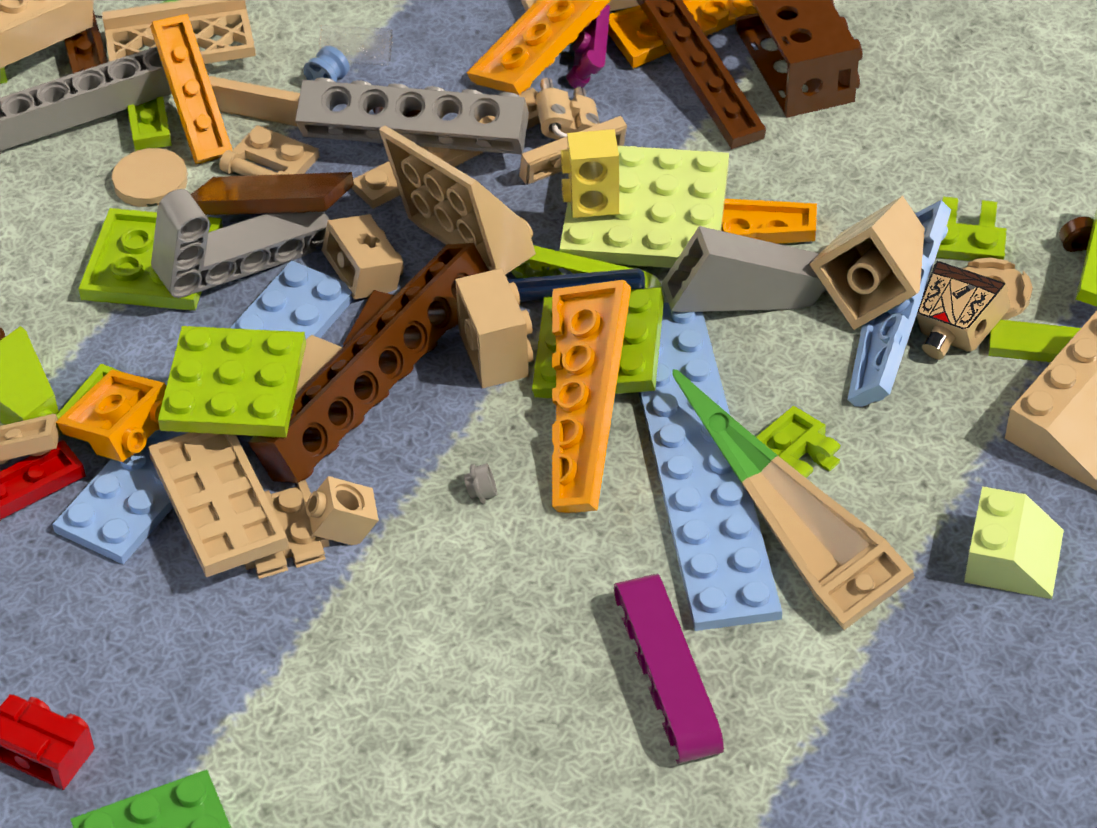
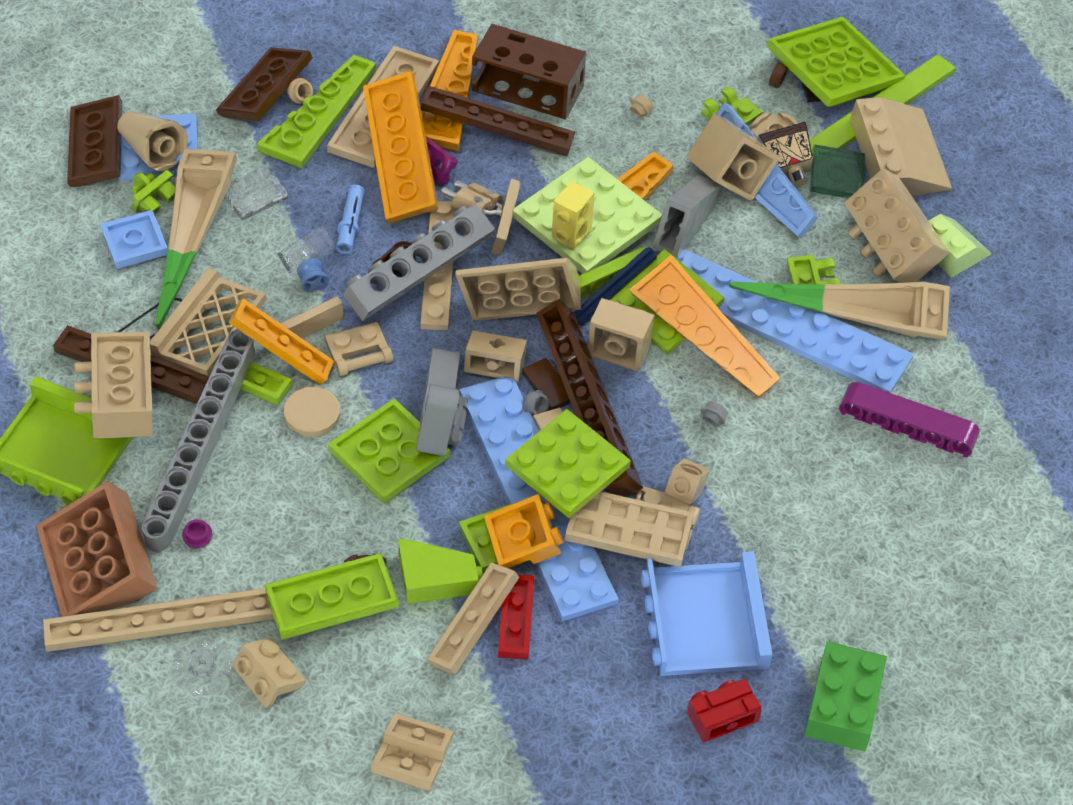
camera: 55 degrees left, 5 degrees up
(166, 647) = (707, 617): none -> light blue panel
(245, 285) = (459, 422): none -> light grey axle
(272, 193) = (406, 363): reddish brown tile -> none
(329, 317) = (536, 402): none -> light grey plate
(425, 54) = (349, 227): none -> light blue pin
(877, 157) = (641, 106): none -> tan plate
(948, 467) = (894, 229): none -> tan piece
(989, 372) = (836, 171): none -> clear green tile

